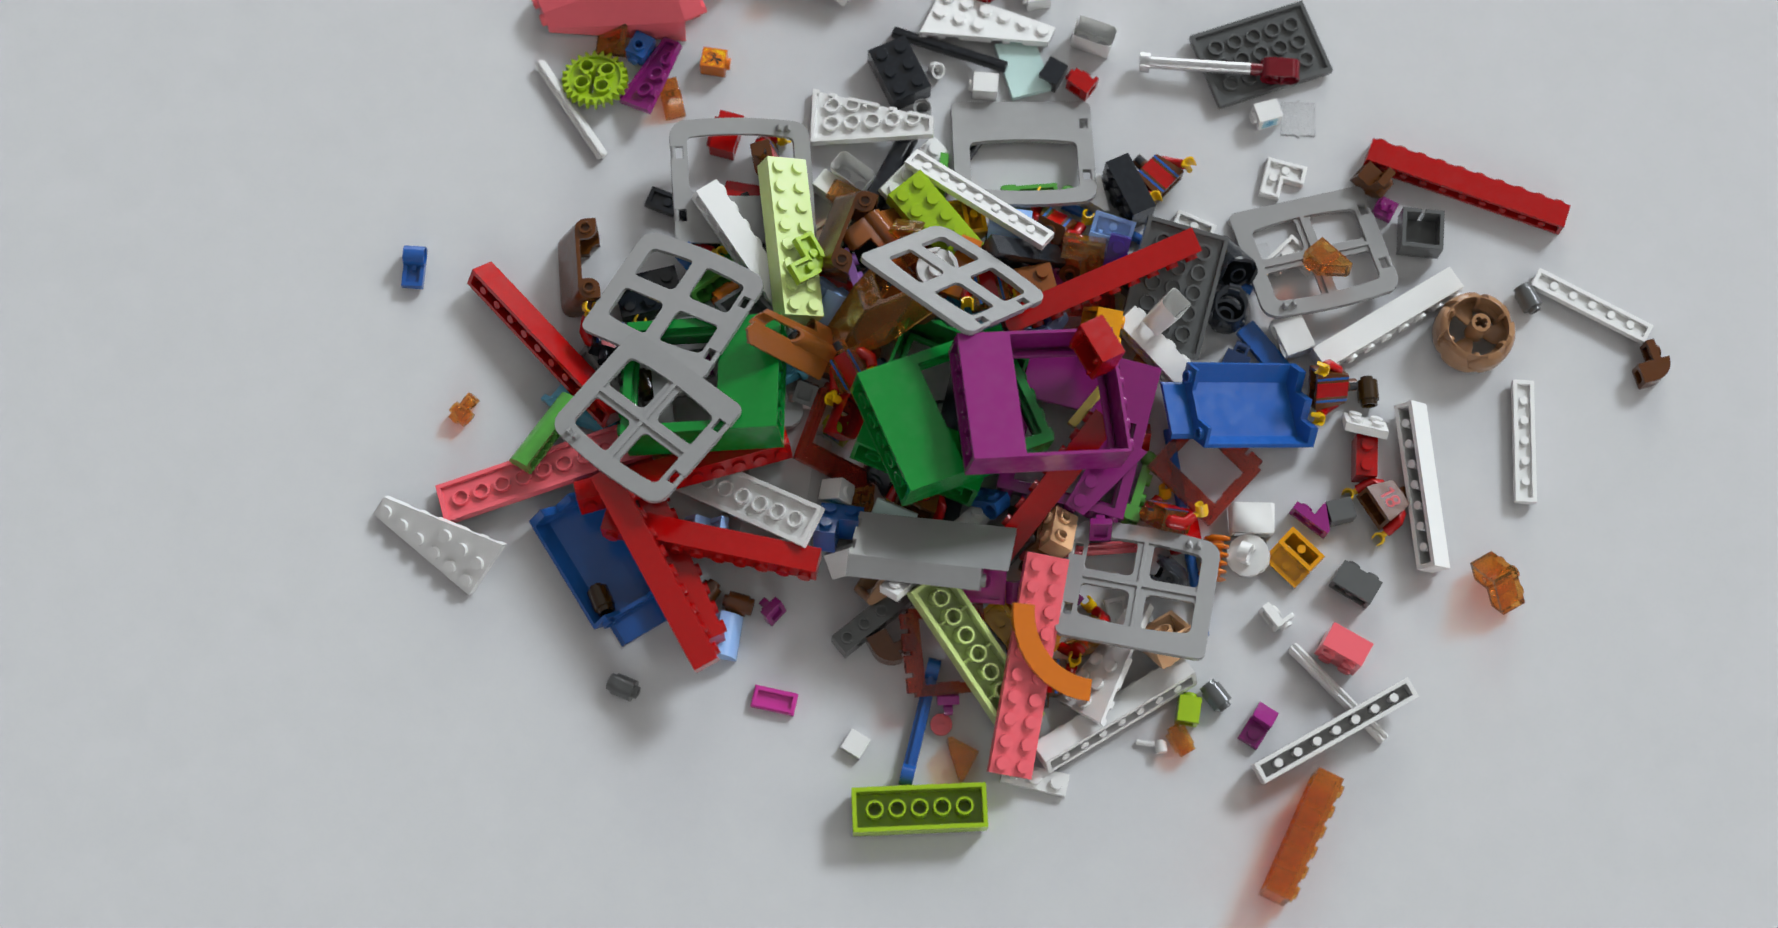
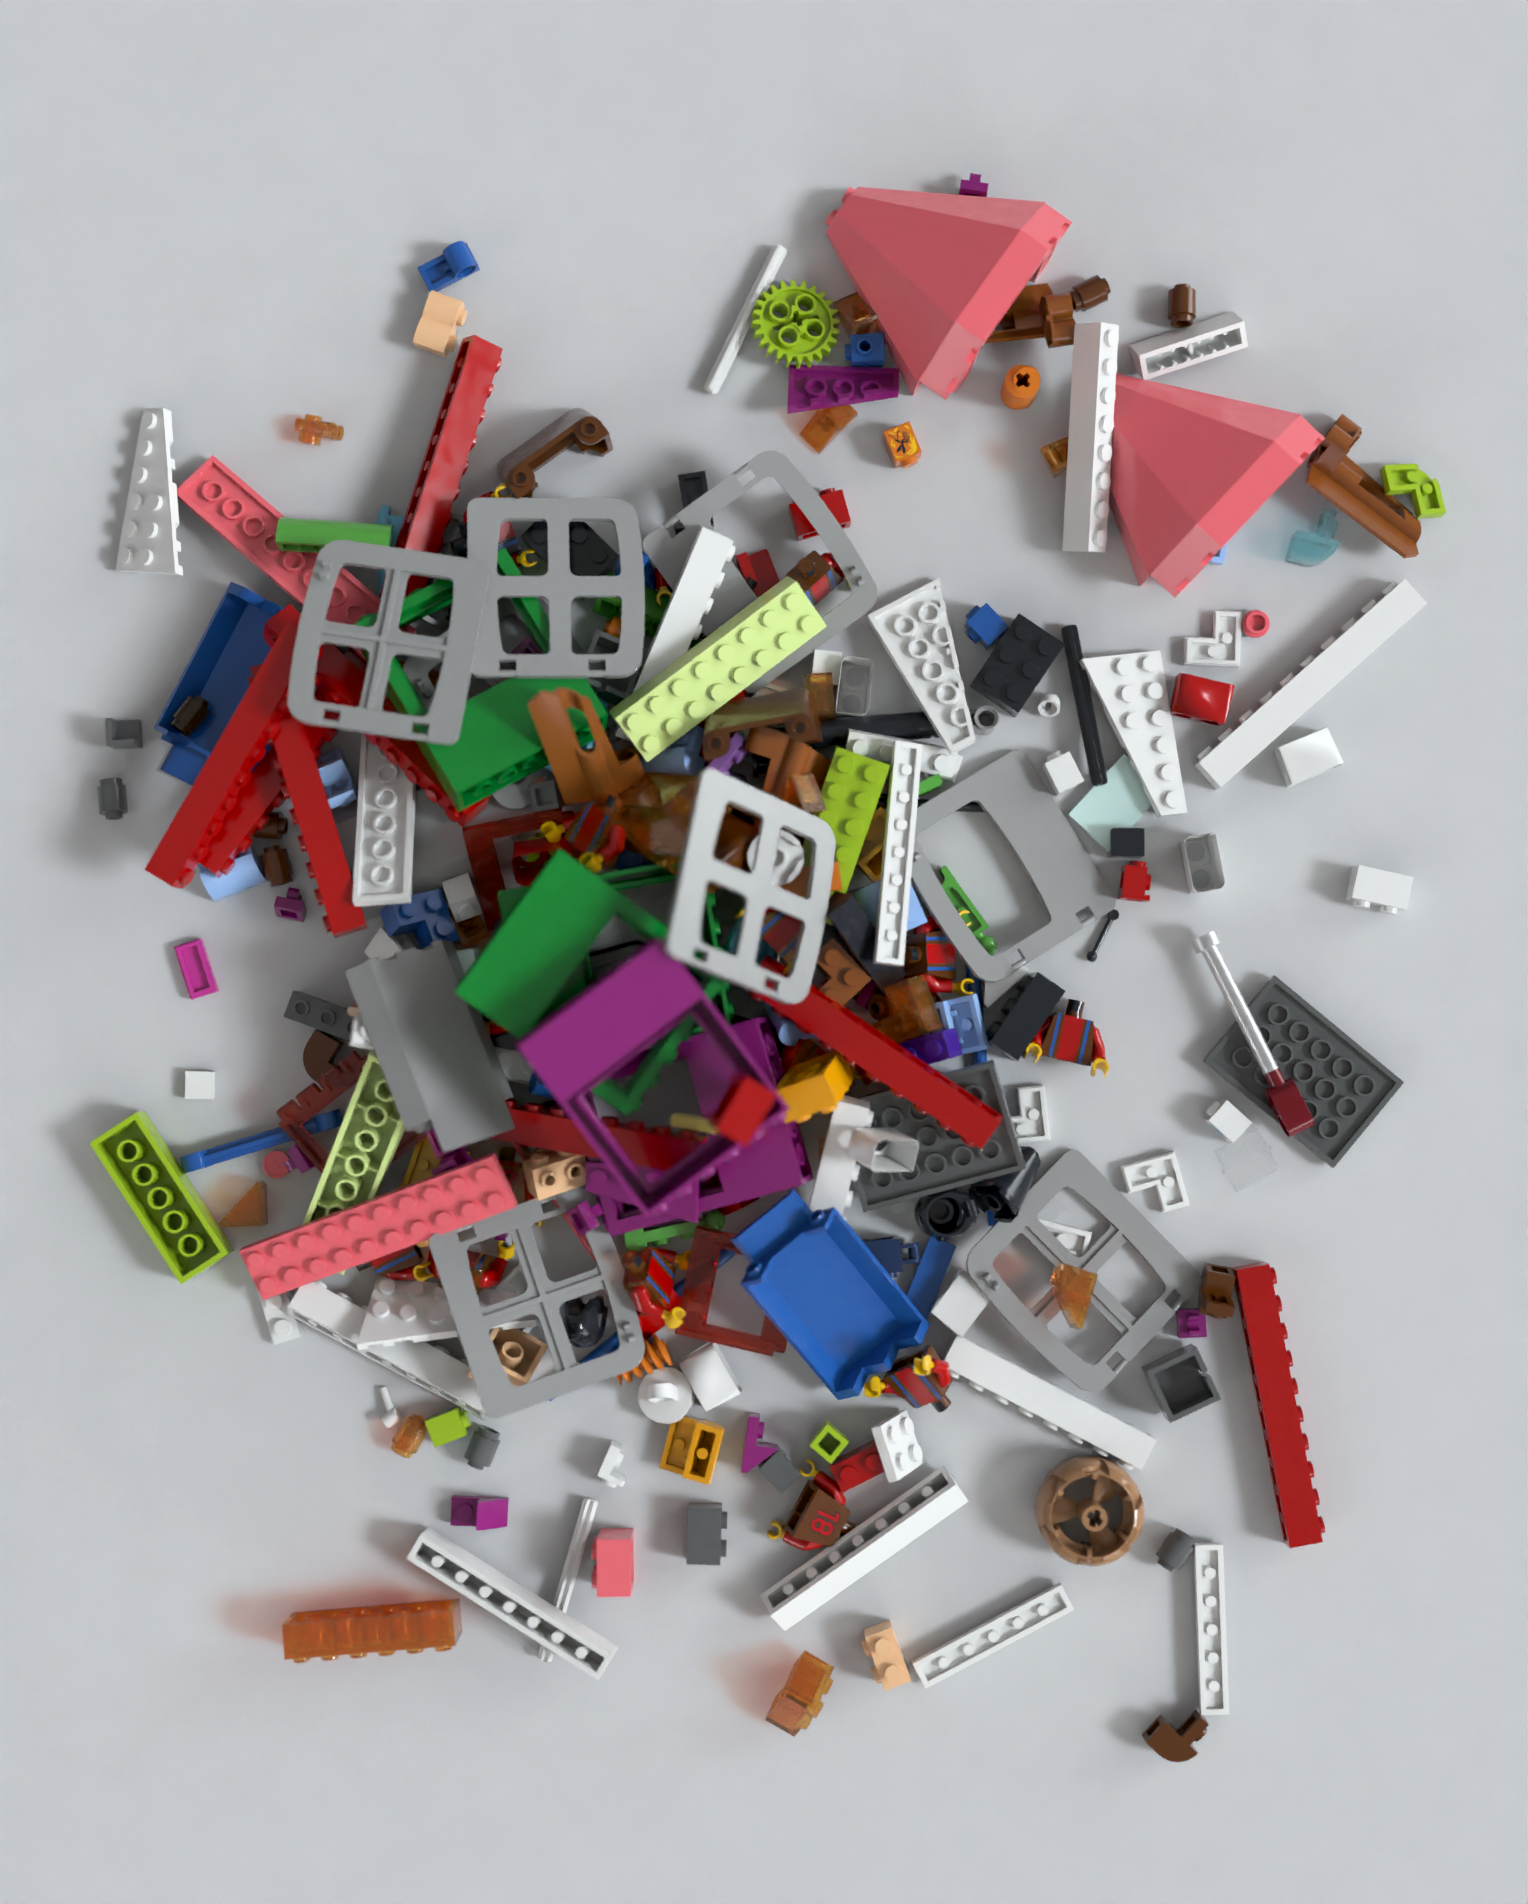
camera: 65 degrees right, 15 degrees up
(447, 293) = (439, 324): none -> light nougat brick
(584, 653) = (123, 734): none -> dark grey panel
(811, 258) = (698, 710): lime plate -> none
(861, 78) = (984, 626): none -> blue brick
(1038, 658) = (383, 1239): orange tile -> none
(1112, 136) = (1092, 955): none -> black hinge
(1337, 468) = (828, 1441): none -> lime brick
(1368, 392) = (945, 1425): dark brown brick -> none
(1501, 513) = (886, 1653): none -> light nougat brick

